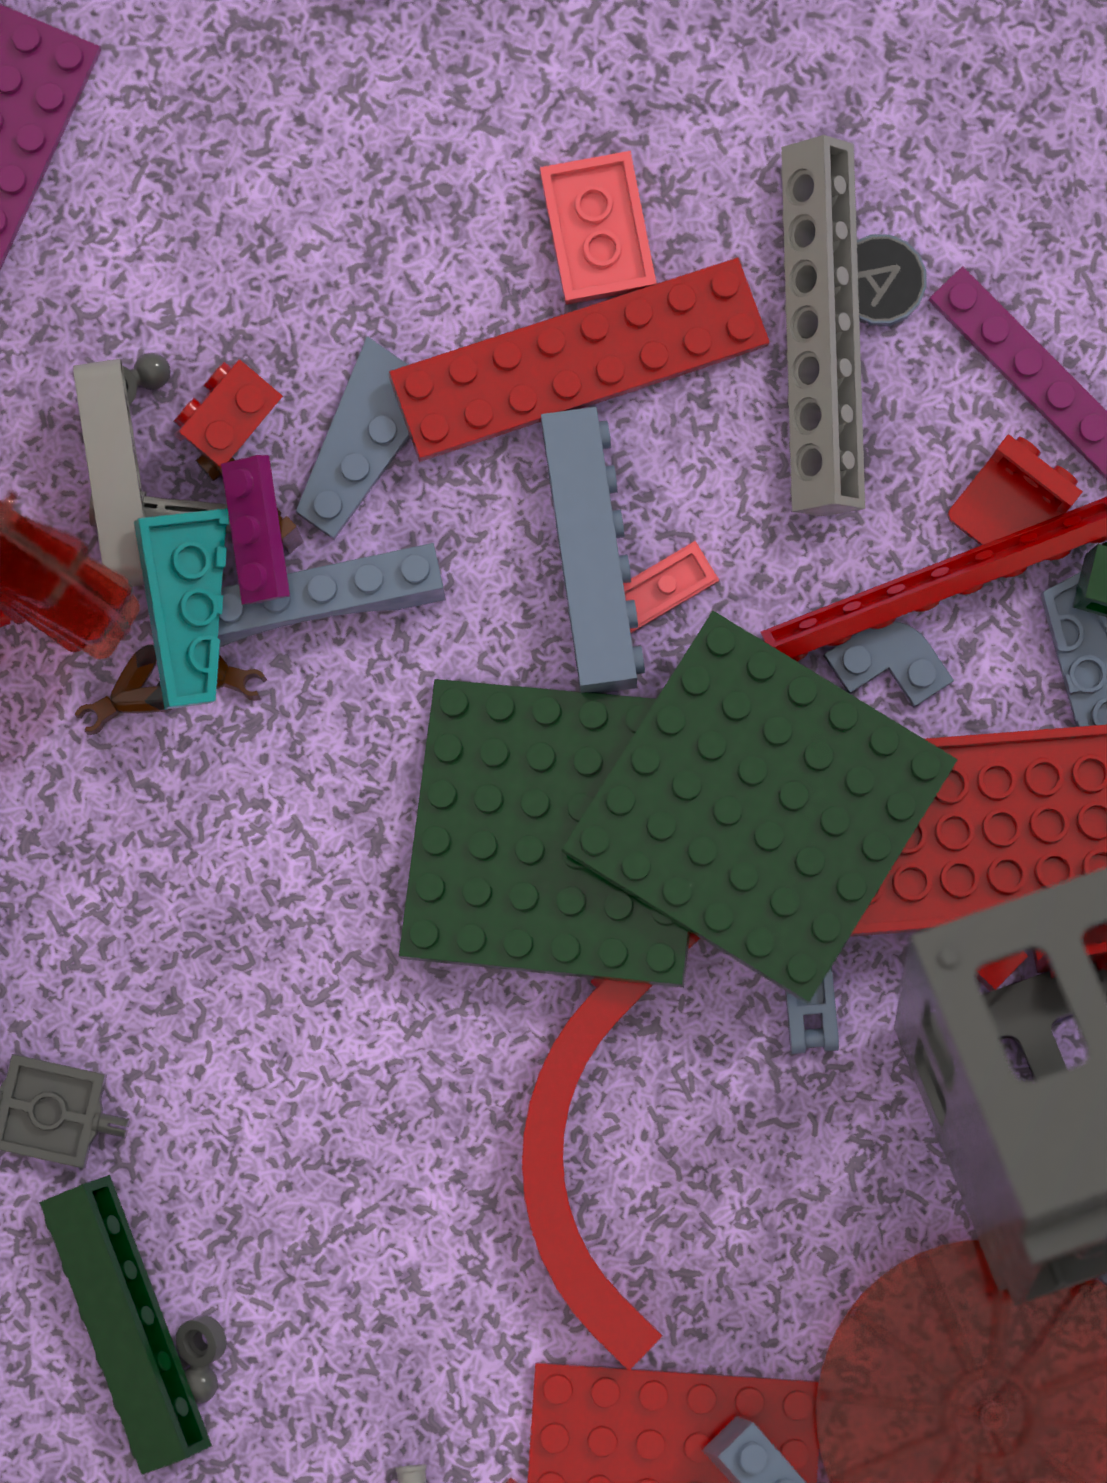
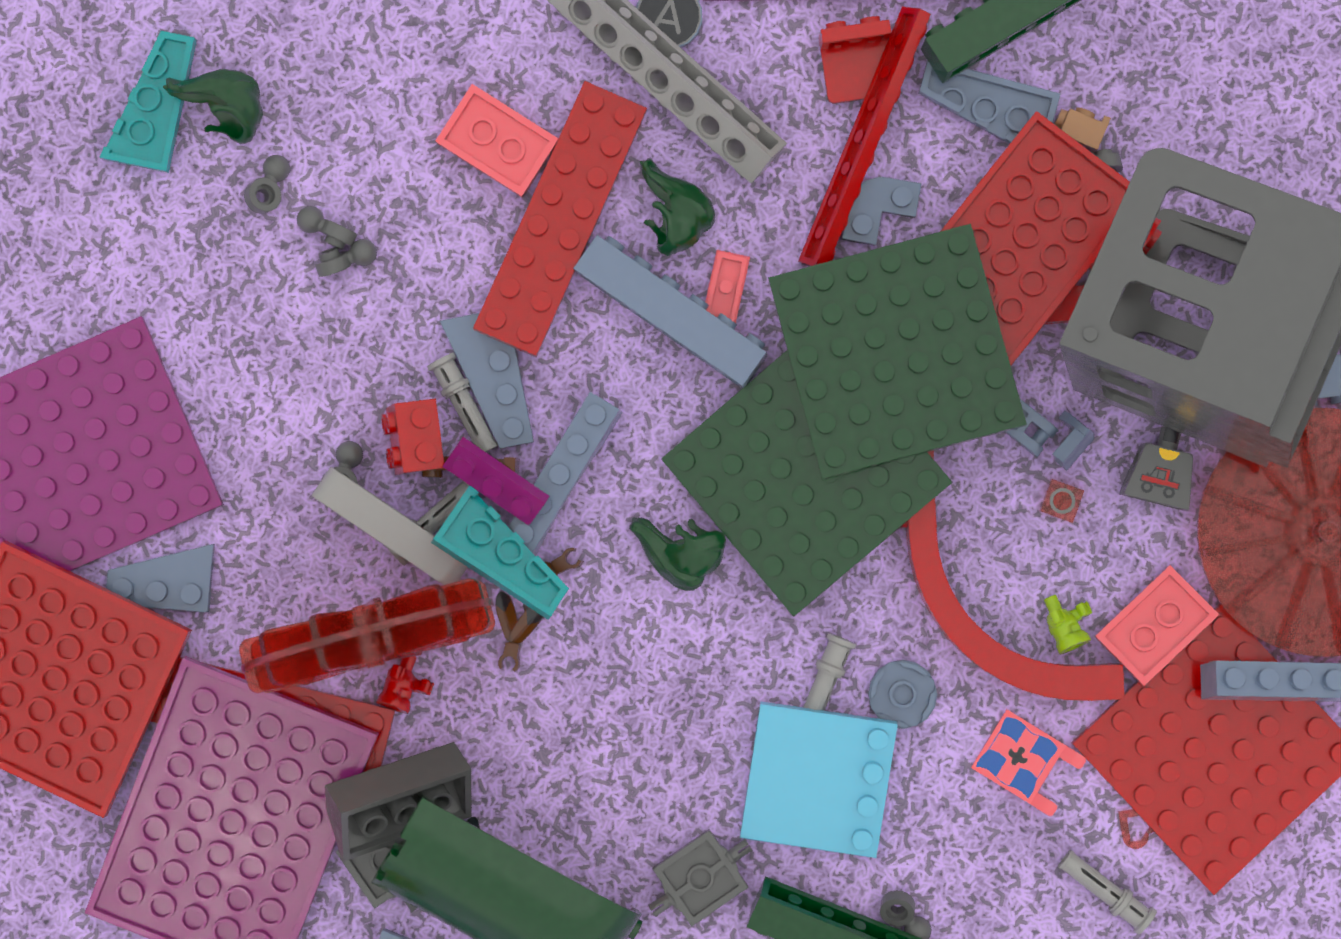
camera: 45 degrees left, 5 degrees up
(258, 1137) = (818, 779): none -> medium azure plate
(314, 414) = (455, 389): none -> light grey pin
(349, 122) = (312, 220): none -> dark grey plate
(351, 795) = (684, 560): none -> dark green piece
(362, 198) = (332, 261): none -> dark grey plate
(366, 43) = (275, 169): none -> dark grey plate
(379, 1045) = (829, 670): none -> light grey pin
(444, 1136) = (894, 684): none -> sand blue tile
(471, 1326) = (1022, 758): none -> coral flag
(647, 1242) = (1064, 624): none -> lime piece
(703, 475) = (685, 210): none -> dark green piece
(735, 1336) = (1157, 625): none -> coral plate
(771, 1120) = (1061, 500): none -> clear red tile
(839, 1078) = (1075, 442): none -> sand blue tile
(893, 1194) = (1161, 473): none -> dark grey torso

